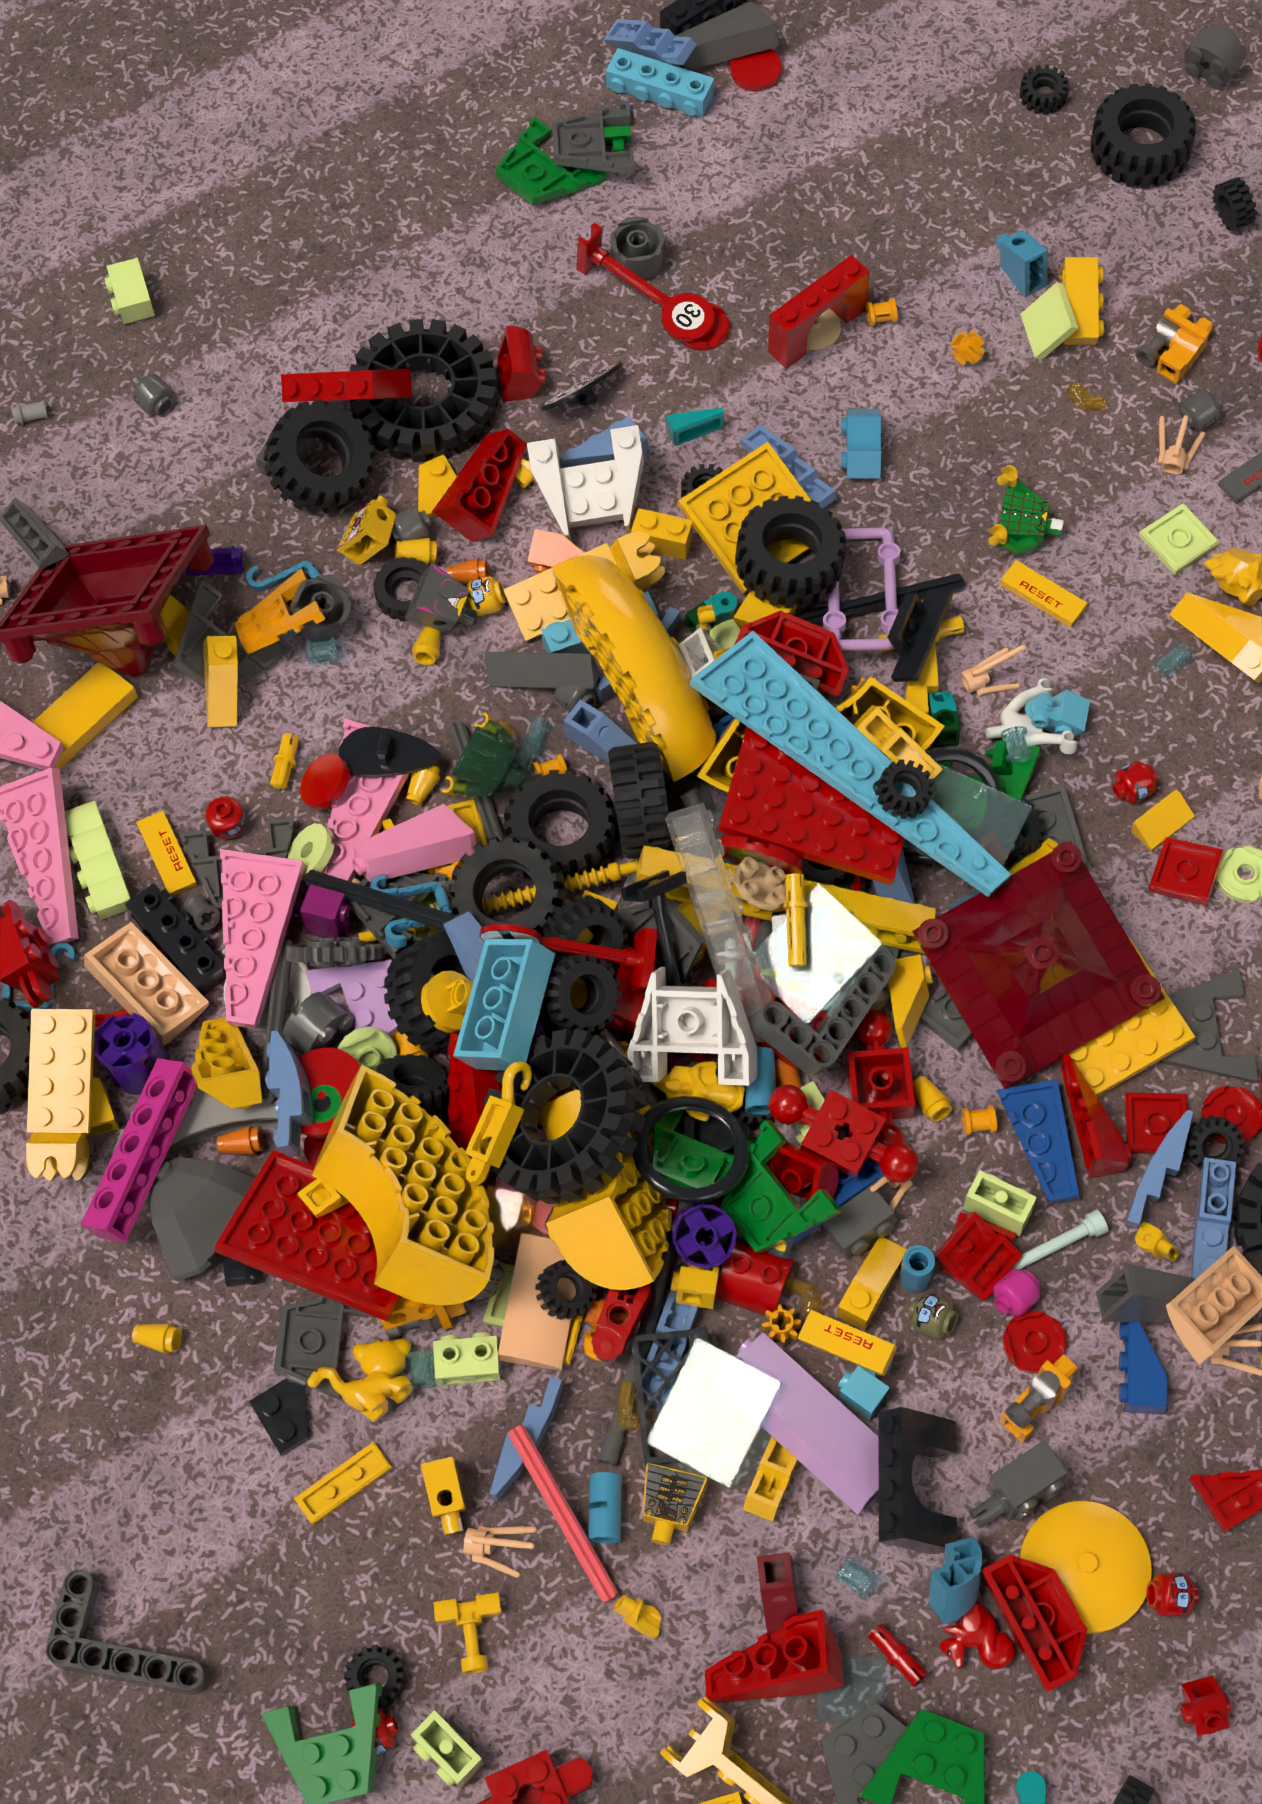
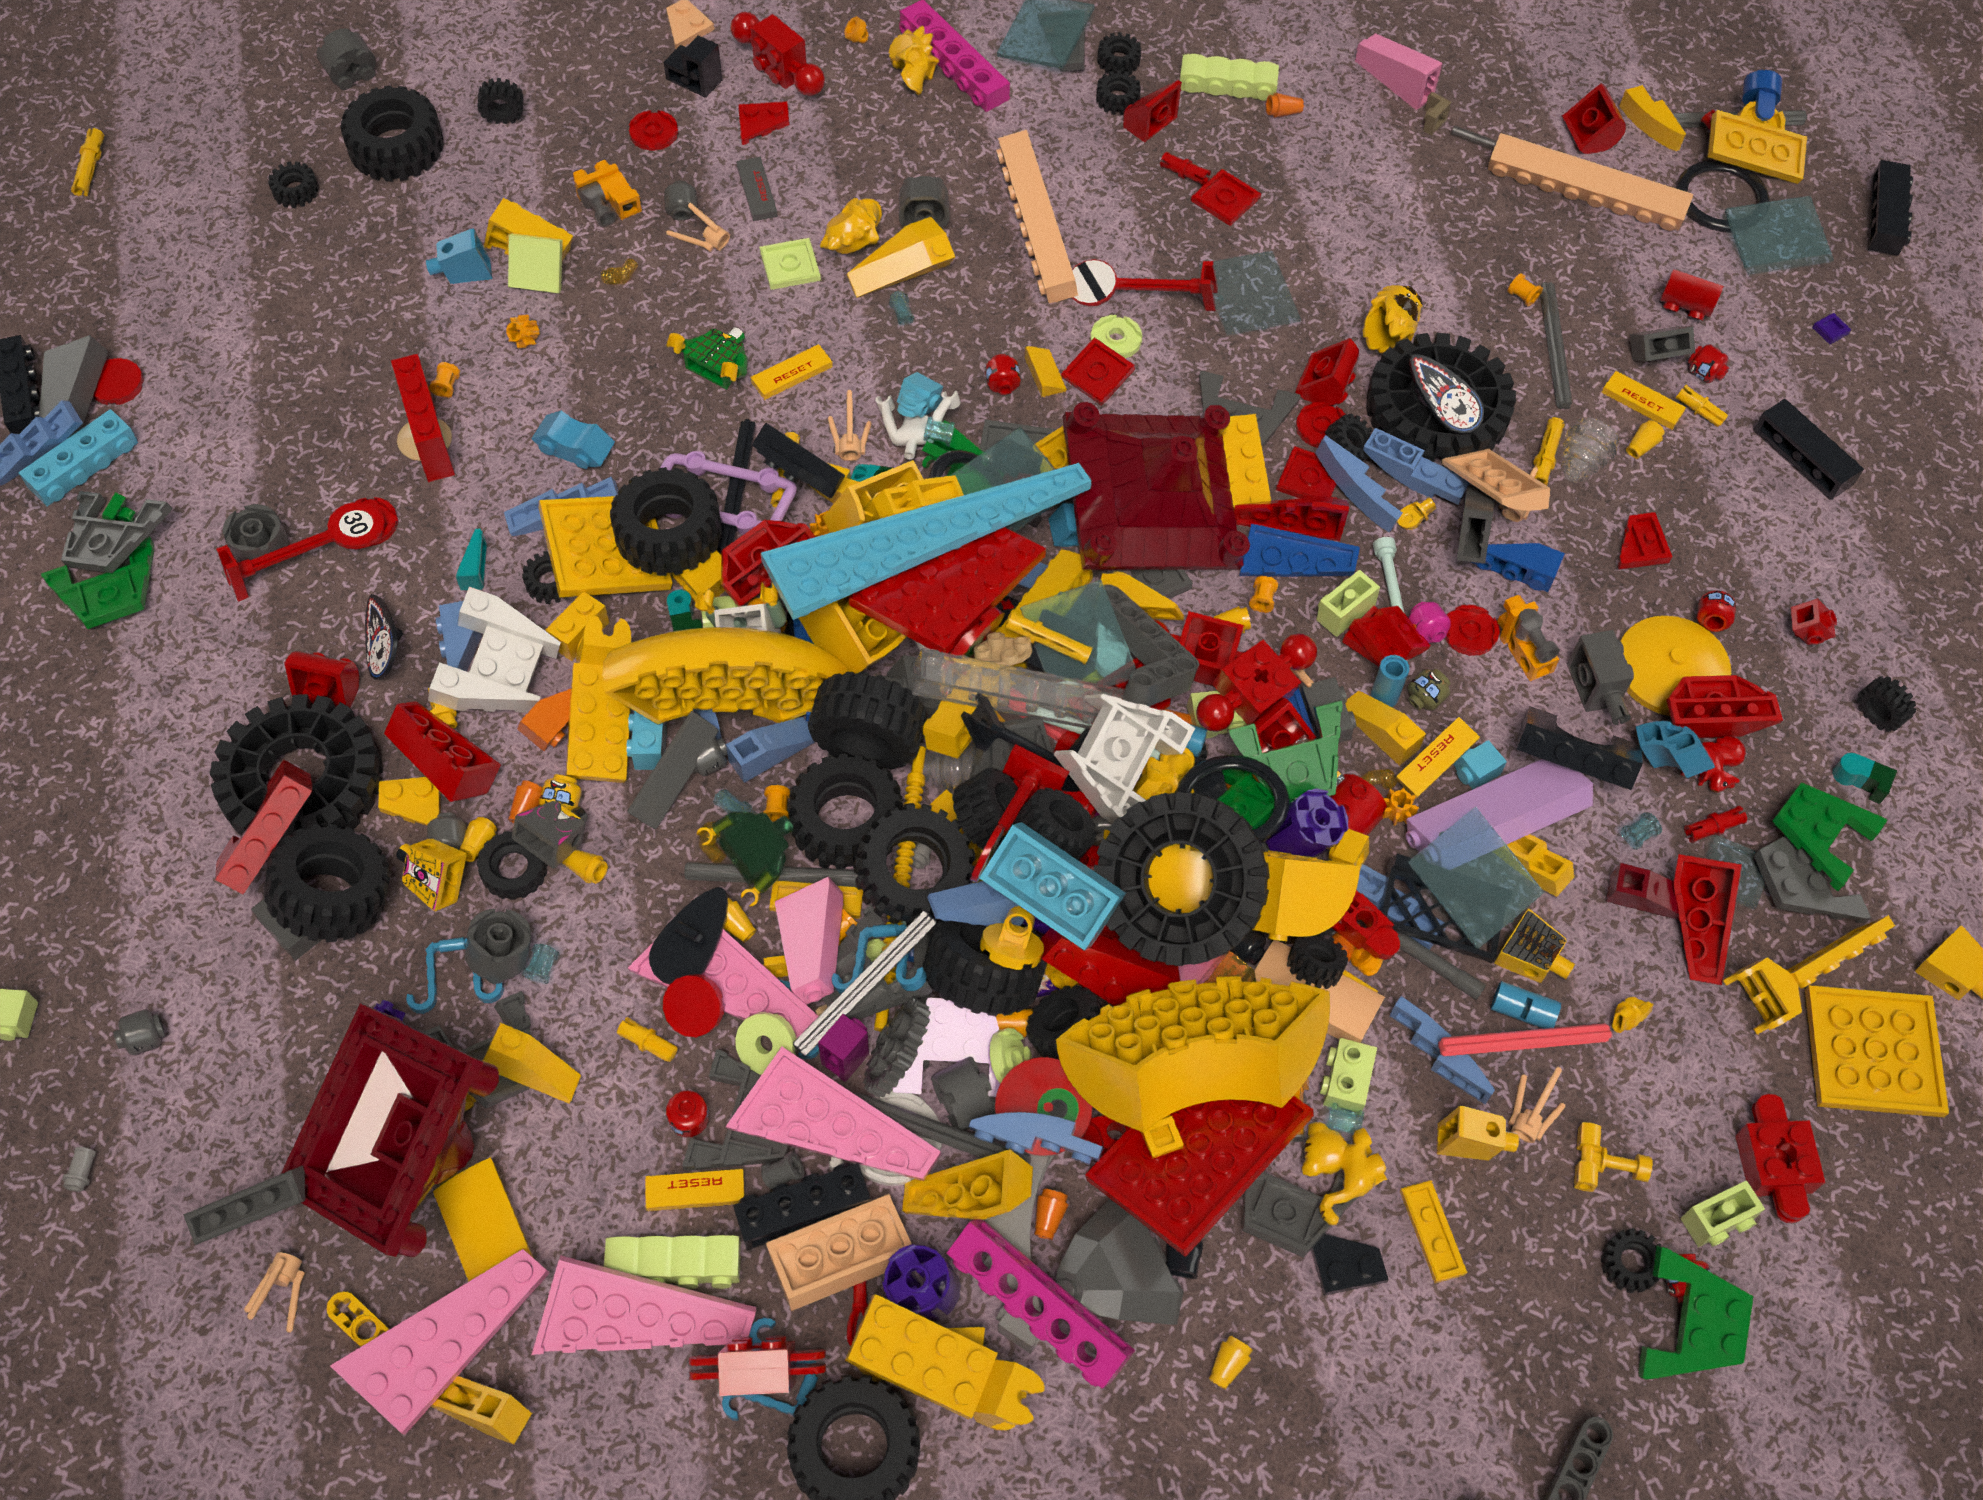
camera: 75 degrees left, 5 degrees down
(272, 616) = (489, 996): light orange wing -> none
(496, 1126) = (1169, 933): yellow piece -> none
(625, 1402) = (1445, 954): clear yellow arm -> none
(899, 803) = (971, 509): black tyre -> none

